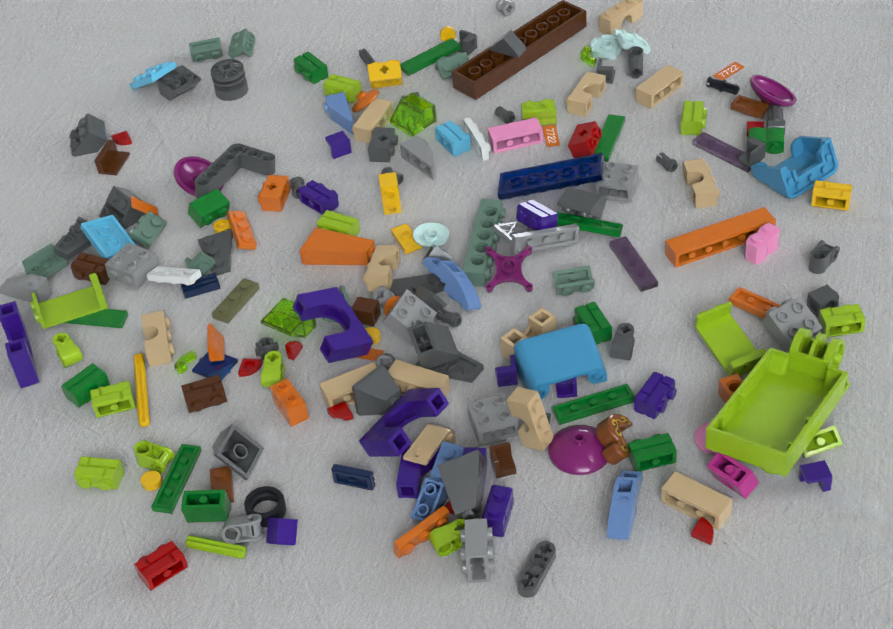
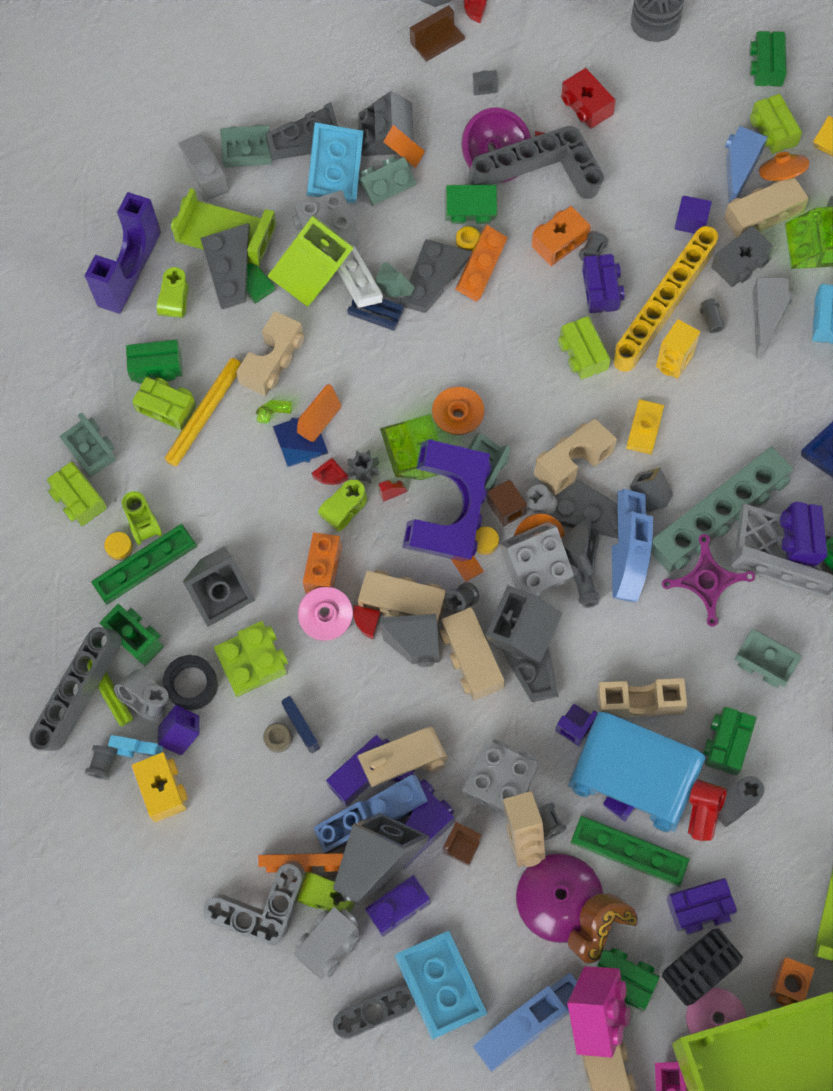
camera: 40 degrees right, 25 degrees up
(82, 443) = (88, 446): none -> sand green bracket
(88, 315) = (227, 263): none -> dark grey wing
(89, 264) = (285, 190): reddish brown brick -> none
(141, 278) = (310, 261): none -> lime slope
(160, 565) = (36, 667): red brick -> none
(162, 160) = (485, 82): none -> dark grey plate
(200, 558) = (63, 695): none -> dark grey beam
(204, 393) = (253, 475): reddish brown brick -> none
(222, 479) = (174, 614): dark orange plate -> none
(228, 133) = (588, 98): none -> red brick
(235, 300) = (393, 364): olive plate -> none
(247, 576) = (101, 762): none -> dark grey bush
(261, 555) = (127, 747): none -> medium azure plate
(291, 471) = (251, 658): none -> lime plate
(294, 287) = (458, 400): none -> orange dish
(298, 563) = (148, 775): none -> yellow brick
(319, 416) = (329, 625): none -> bright pink dish
(336, 248) = (553, 380): orange slope -> none
(345, 495) = (277, 737): none -> dark tan tile
(360, 183) = (663, 308): none -> yellow beam
(387, 436) = (430, 684): dark purple arch -> none
(429, 569) = (269, 915): none -> dark grey beam
(431, 233) = (673, 438): light aqua dish -> none
(559, 525) = (440, 985): none -> medium azure plate
(611, 350) = (707, 803): none -> red piece
(654, 462) = (598, 1011): none -> dark pink brick
(683, 410) = (702, 966): none -> black tyre

